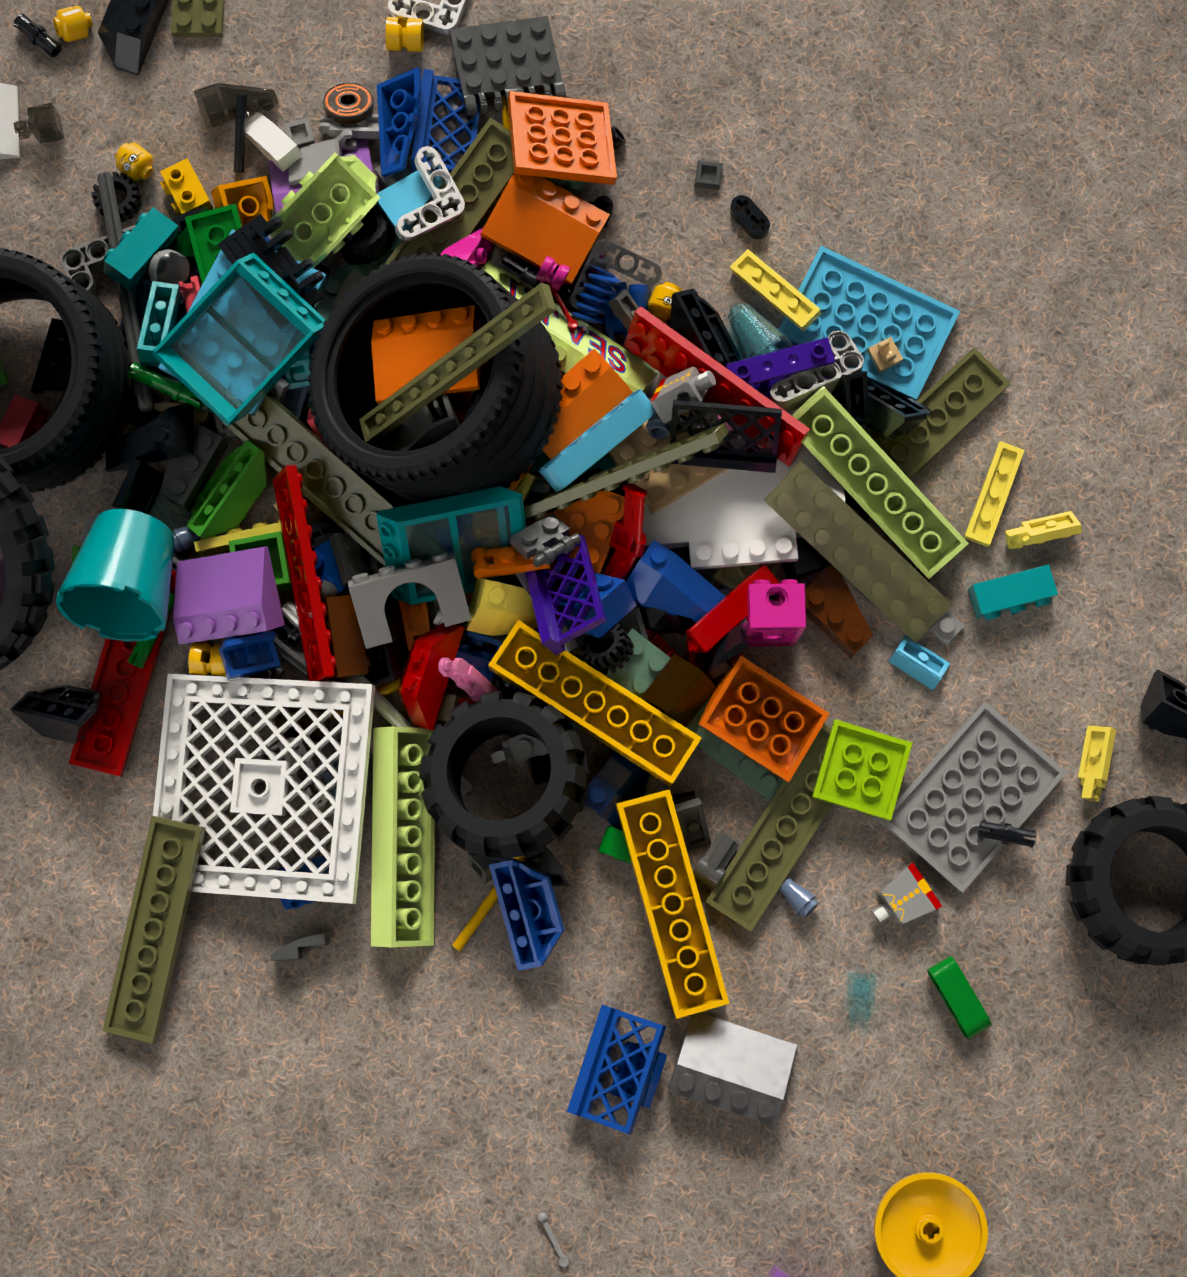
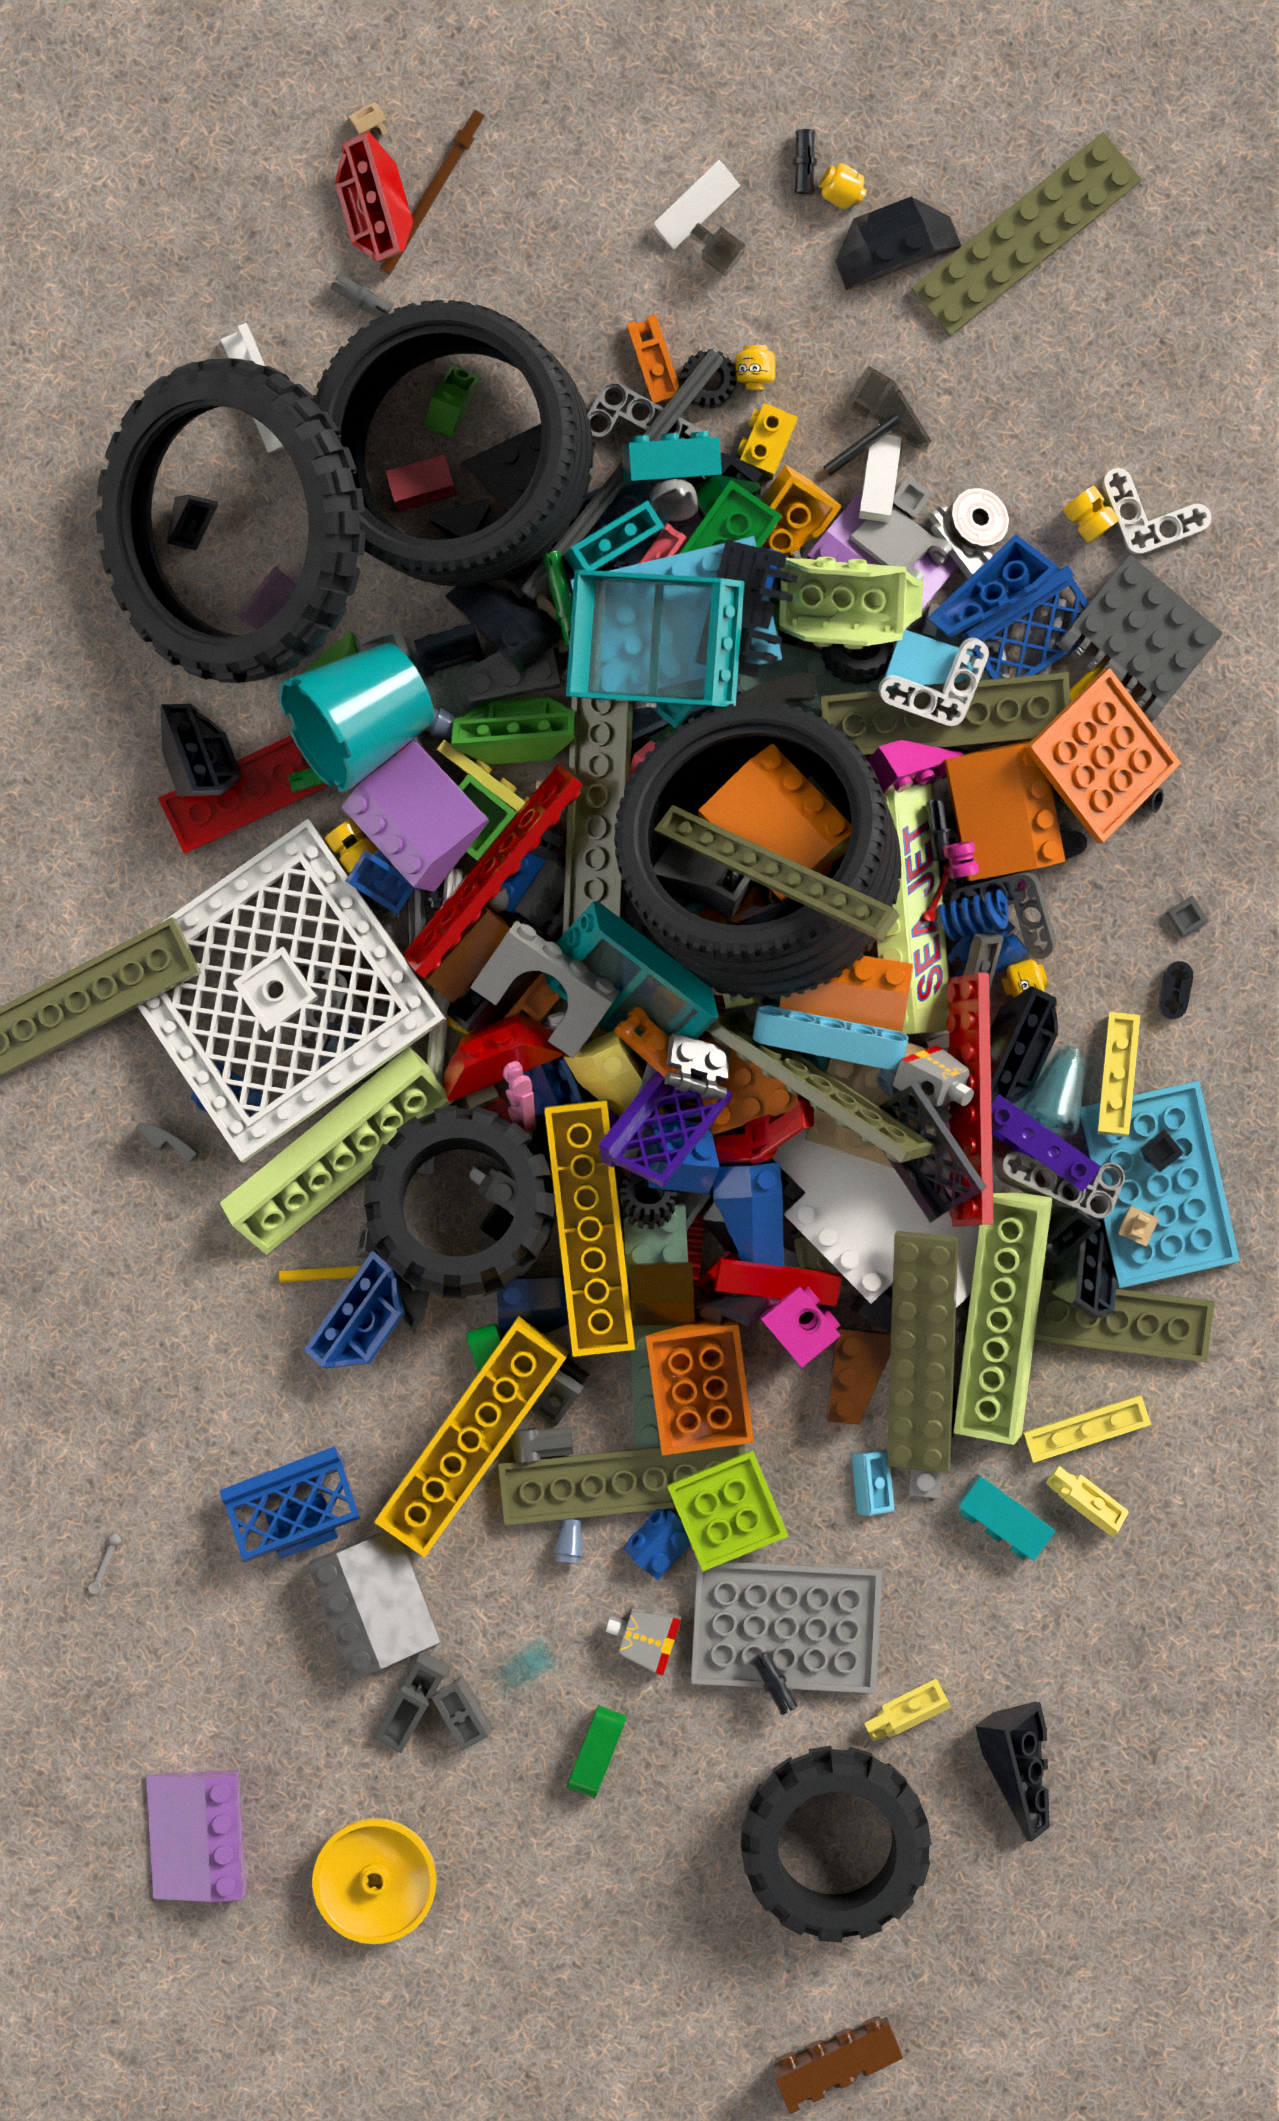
camera: 55 degrees right, 10 degrees up
(73, 220) = (654, 360): none -> orange plate
(823, 1099) = (411, 1702): none -> dark grey slope
(846, 836) = (658, 1542): none -> blue bracket
(847, 300) = (1161, 1150): none -> black plate
(859, 1069) = (462, 1713): none -> dark grey hinge

